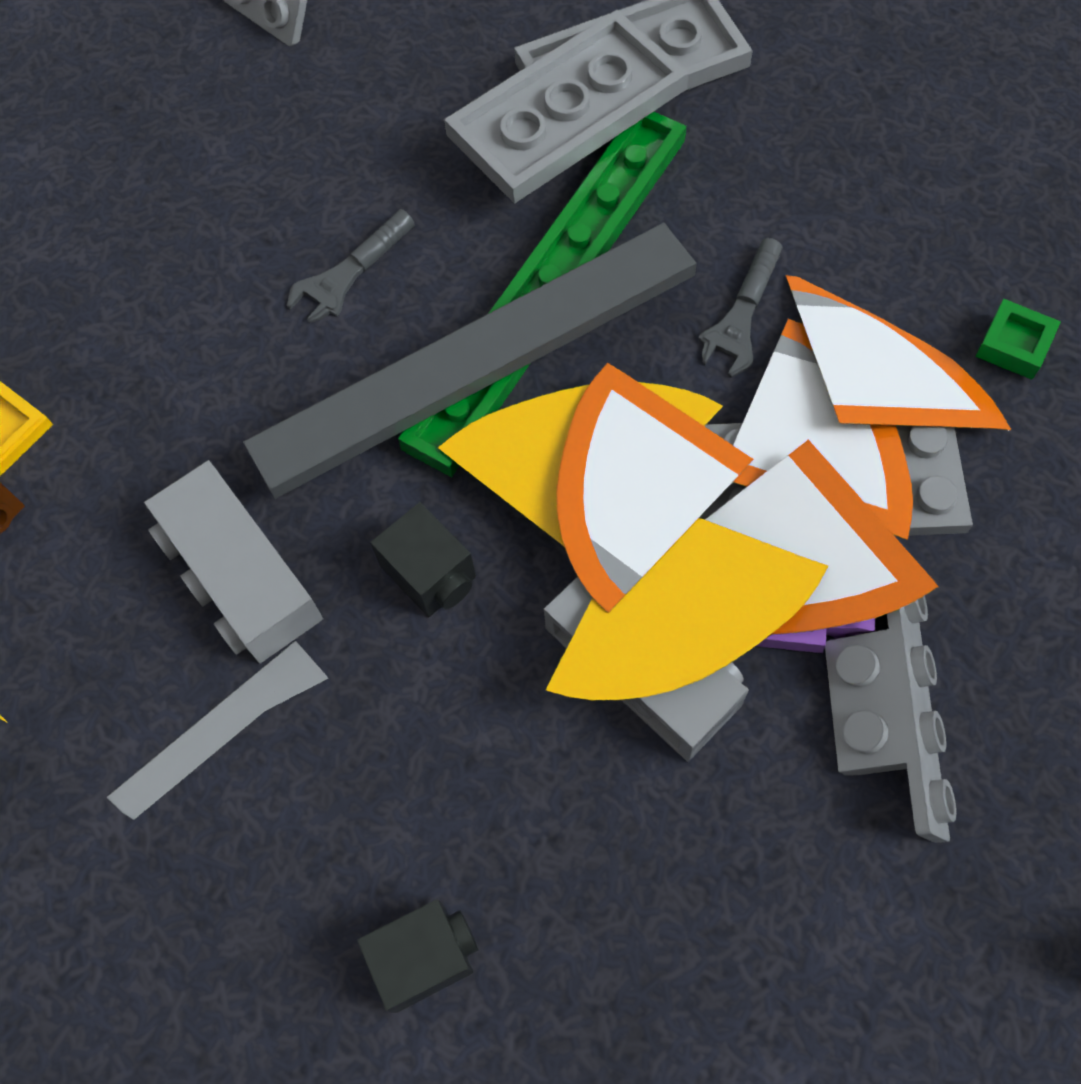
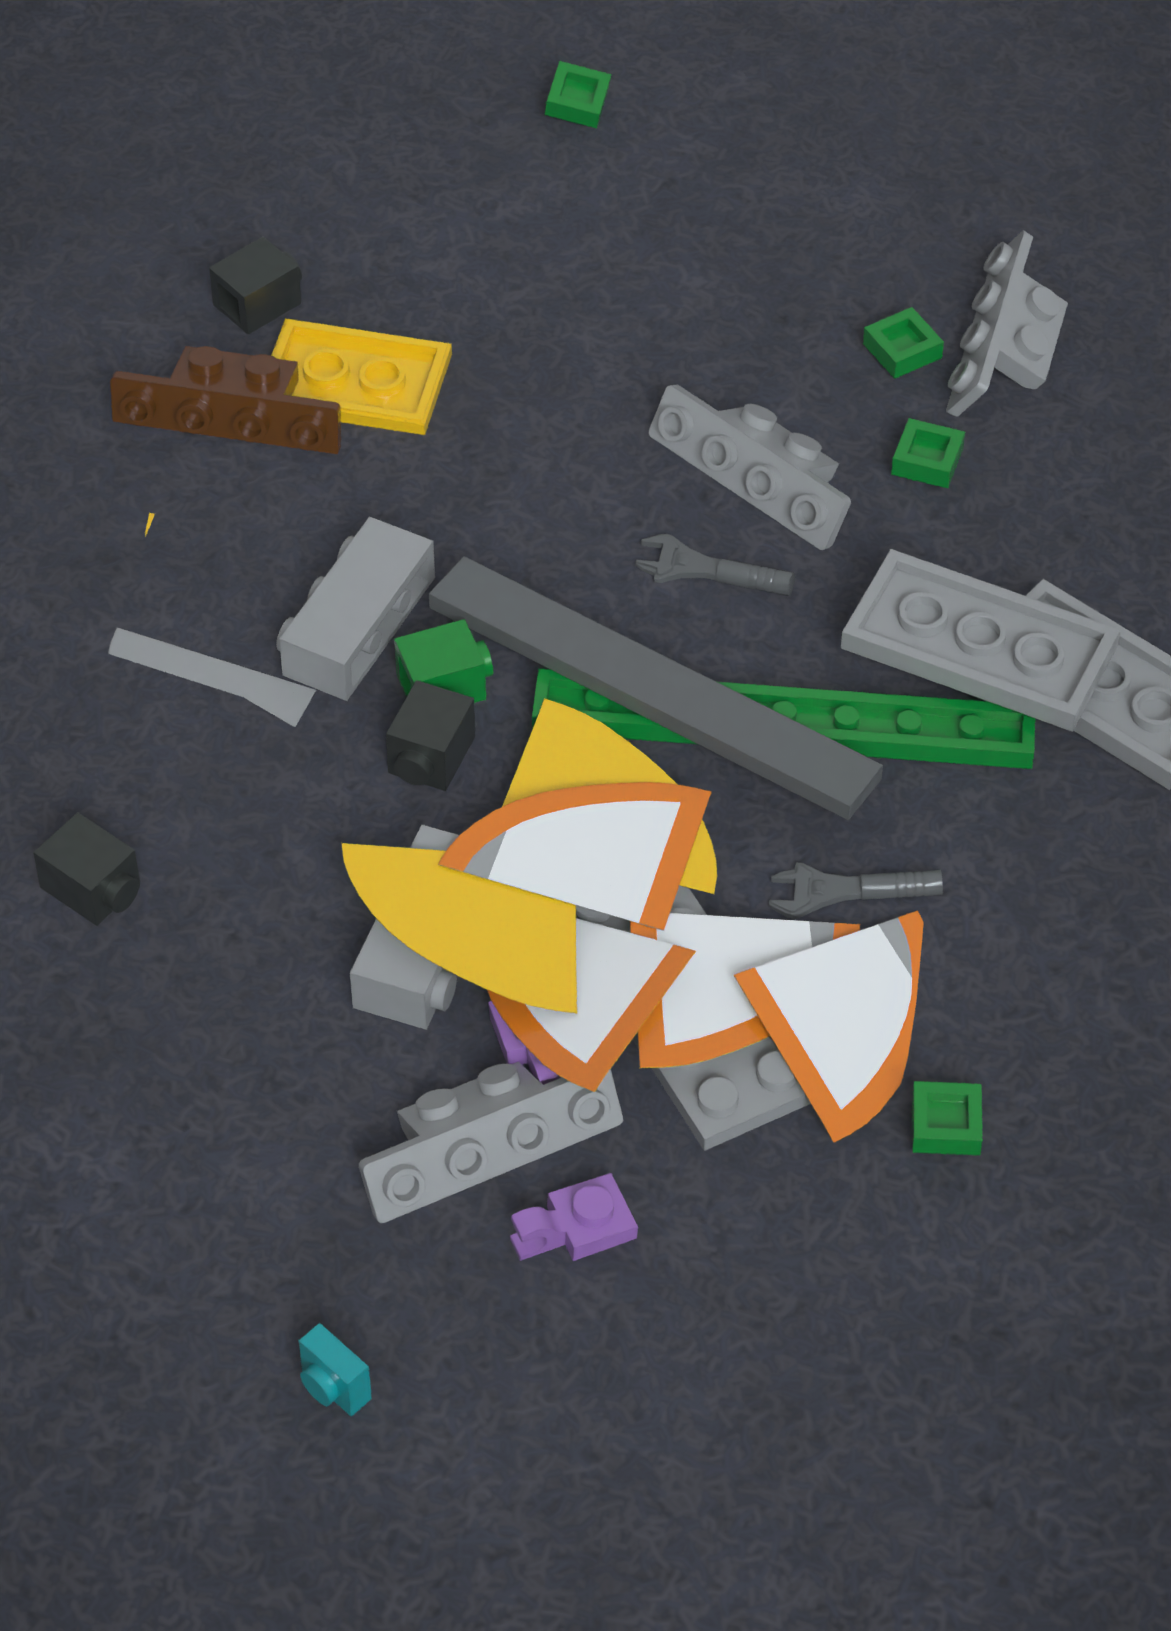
camera: 60 degrees right, 15 degrees down
(207, 37) = (903, 342): none -> green plate
(263, 186) = (757, 461): none -> light grey bracket
(333, 69) = (928, 453): none -> green plate
(346, 517) = (445, 659): none -> green brick
(1020, 658) = (581, 1216): none -> medium lavender plate

